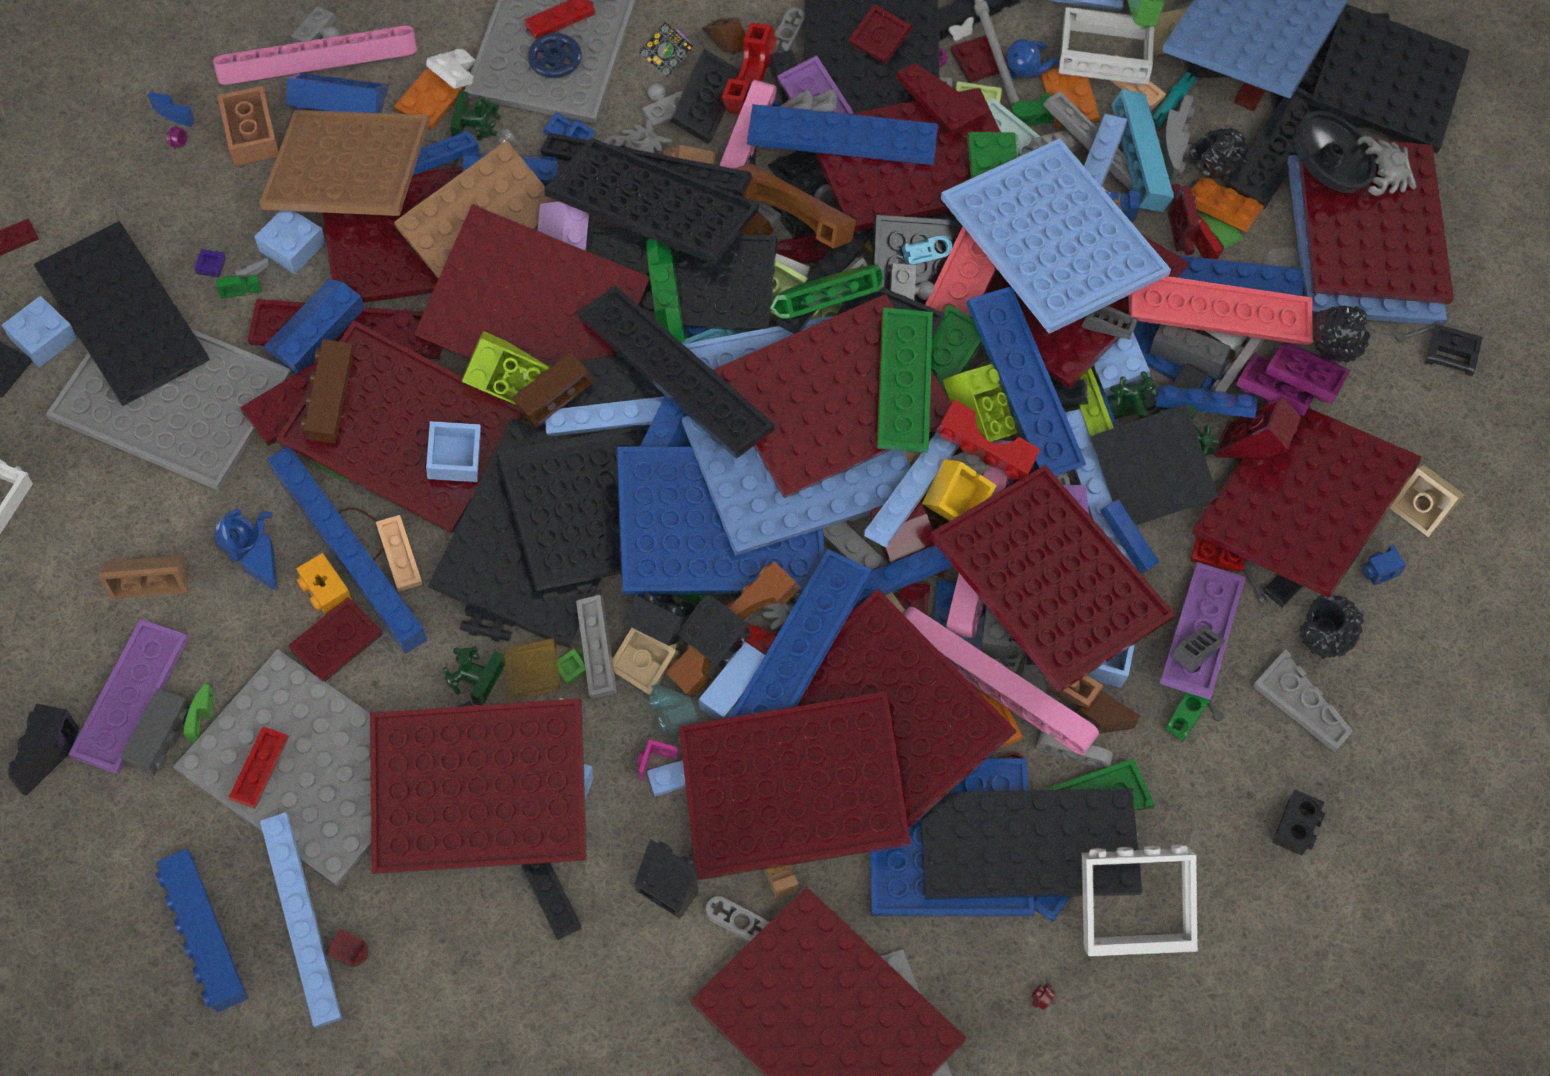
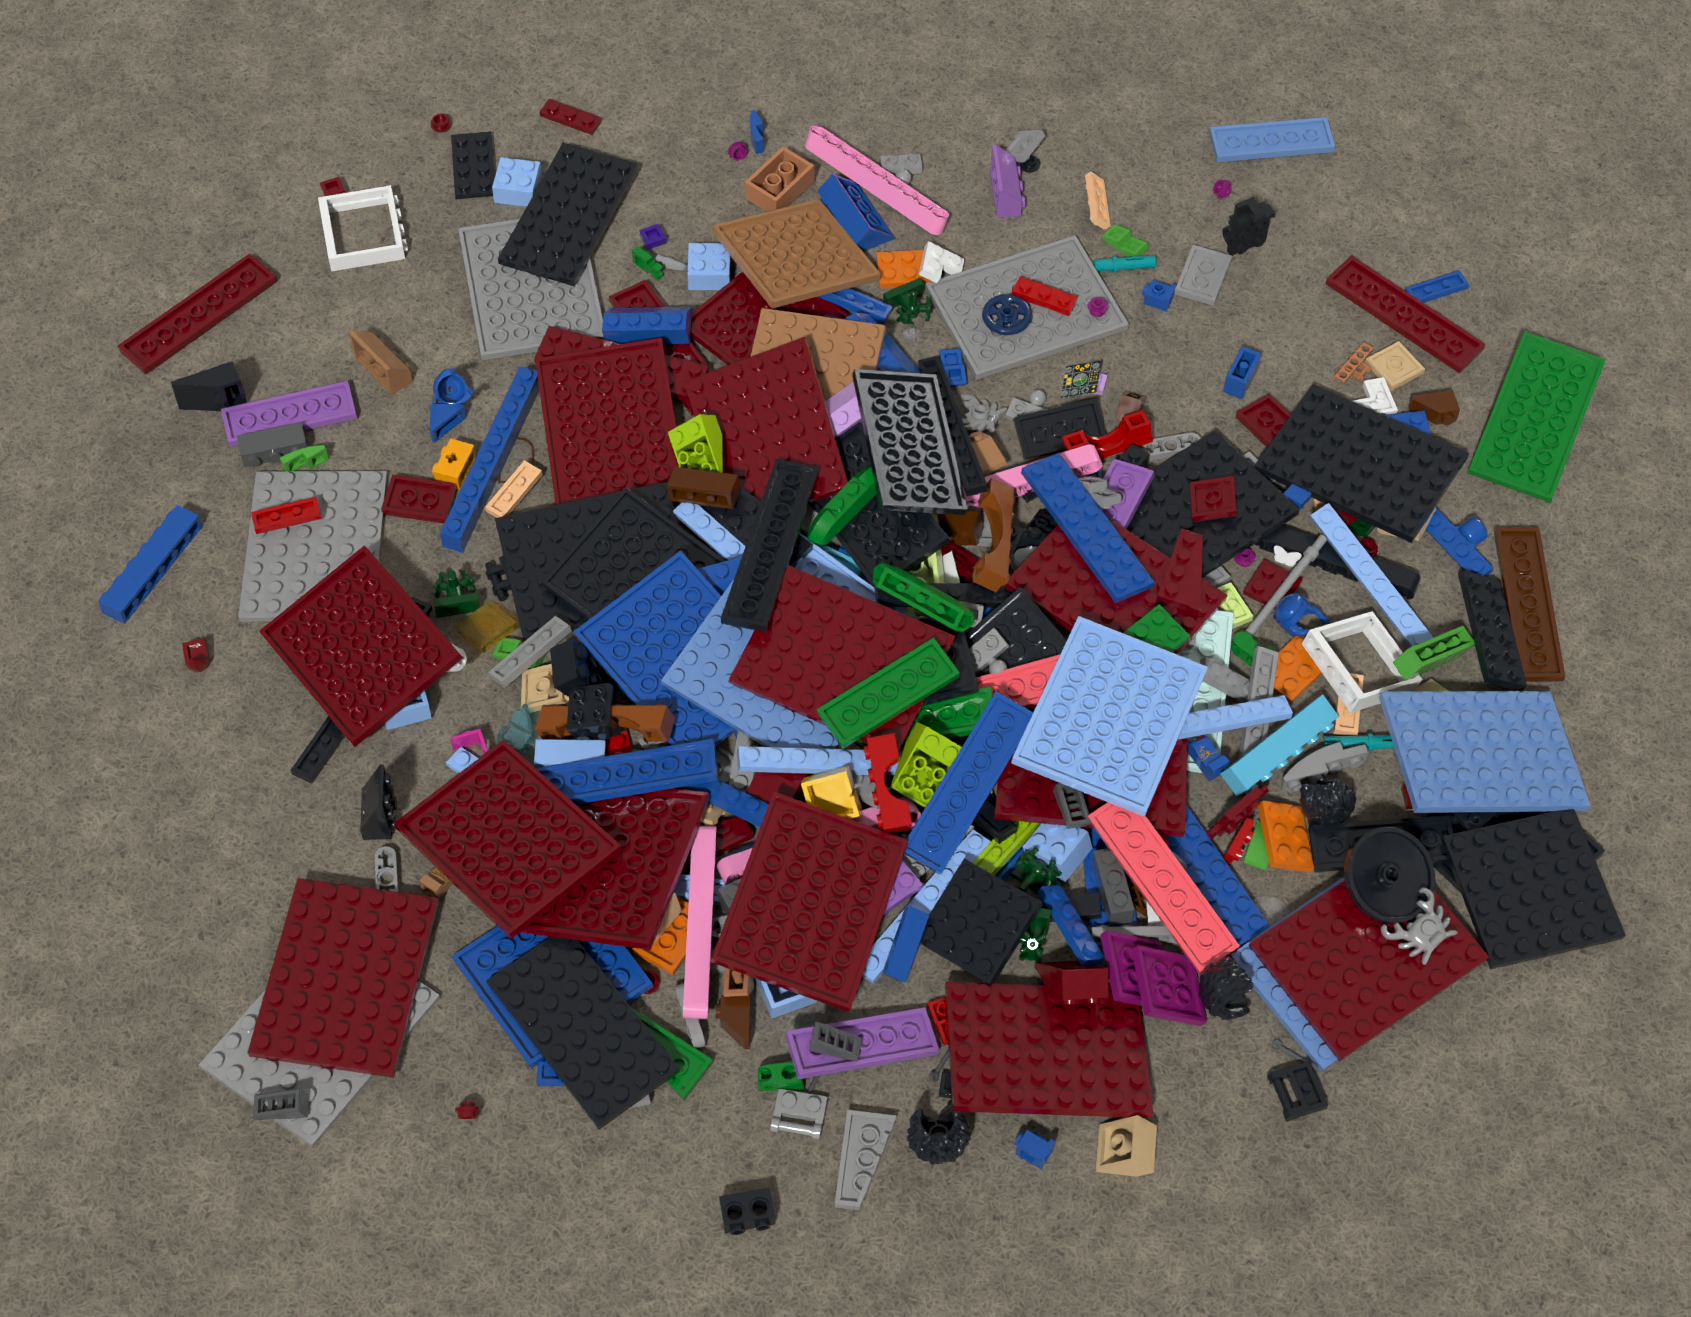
camera: 55 degrees right, 5 degrees down
(301, 920) = (197, 613): light blue plate -> none
(328, 391) = (591, 360): reddish brown brick -> none
(453, 451) = (608, 464): light blue piece -> none
(925, 250) = (1025, 642): medium azure piece -> none
(1141, 943) = (554, 1149): white window -> none
(1222, 718) = (799, 1106): none -> light grey plate

